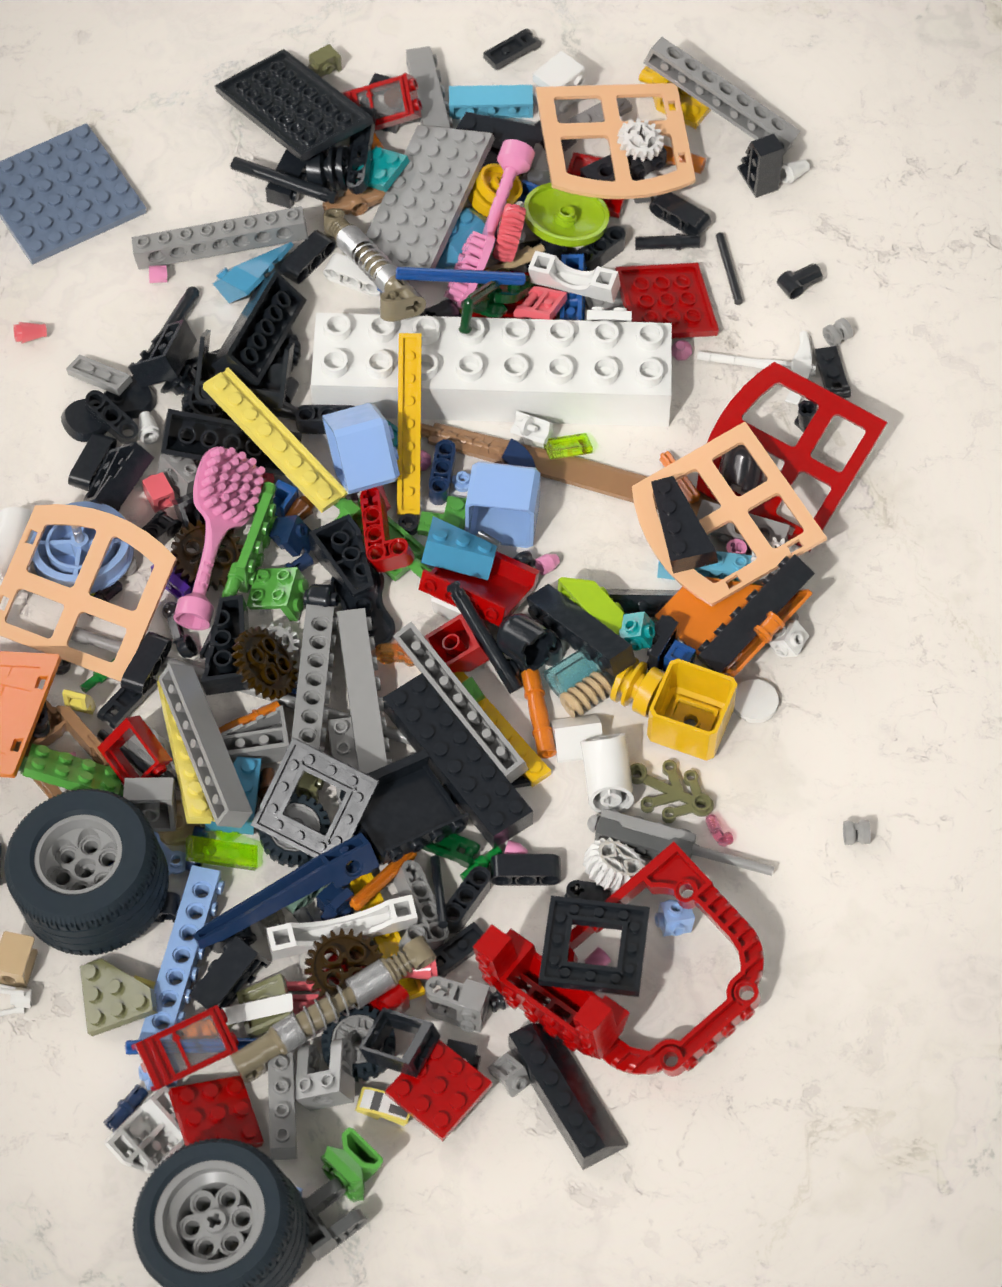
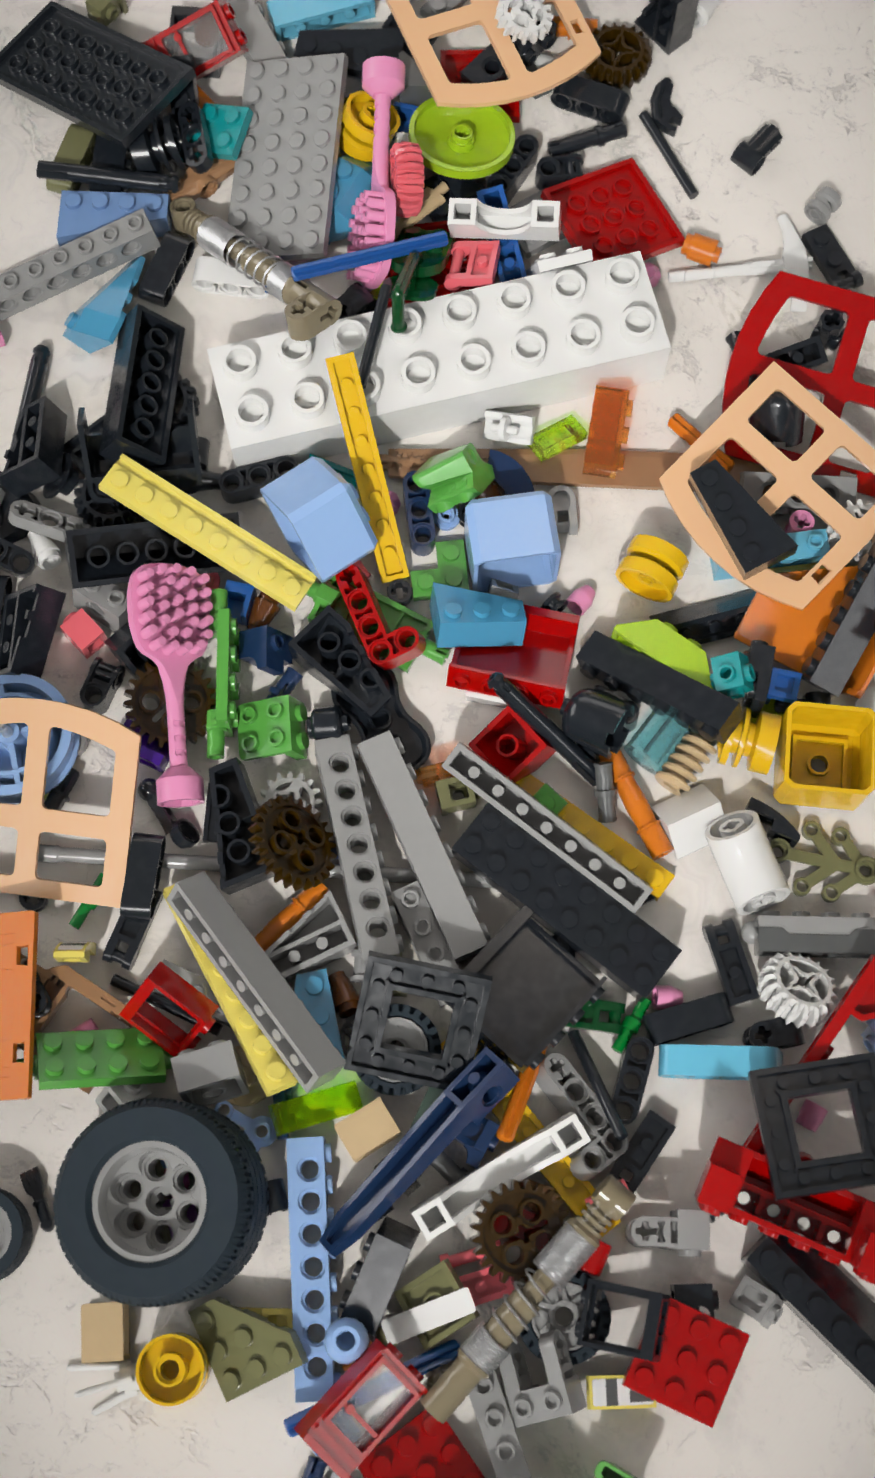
camera: 15 degrees left, 15 degrees up
(56, 995) = (172, 1369): none -> yellow wheel
(147, 402) = (43, 513): none -> light grey beam
(189, 1002) = (346, 1340): none -> light blue piece
(252, 875) = (367, 1130): none -> tan piece
(259, 199) = (90, 210): none -> medium blue wedge
(267, 155) = (75, 149): none -> olive beam
(400, 670) = (447, 788): none -> olive brick
(443, 330) = (374, 333): none -> black bar
(475, 446) = (454, 477): none -> bright green piece
(516, 697) = (605, 792): none -> dark grey pin
(526, 897) = (715, 1061): none -> medium azure beam
(554, 491) = (565, 504): none -> light grey plate
(572, 841) = (731, 963): none -> black plate
(605, 447) = (607, 432): none -> clear orange wedge
(607, 550) = (652, 568): none -> yellow wheel
(636, 256) = (559, 168): none -> black piece
(640, 750) = (779, 825): none -> black slope
(713, 189) = (631, 62): none -> dark brown gear
(729, 340) = (701, 249): none -> orange brick
(735, 234) = (662, 110): none -> black piece
(780, 428) = (806, 353): none -> black brick

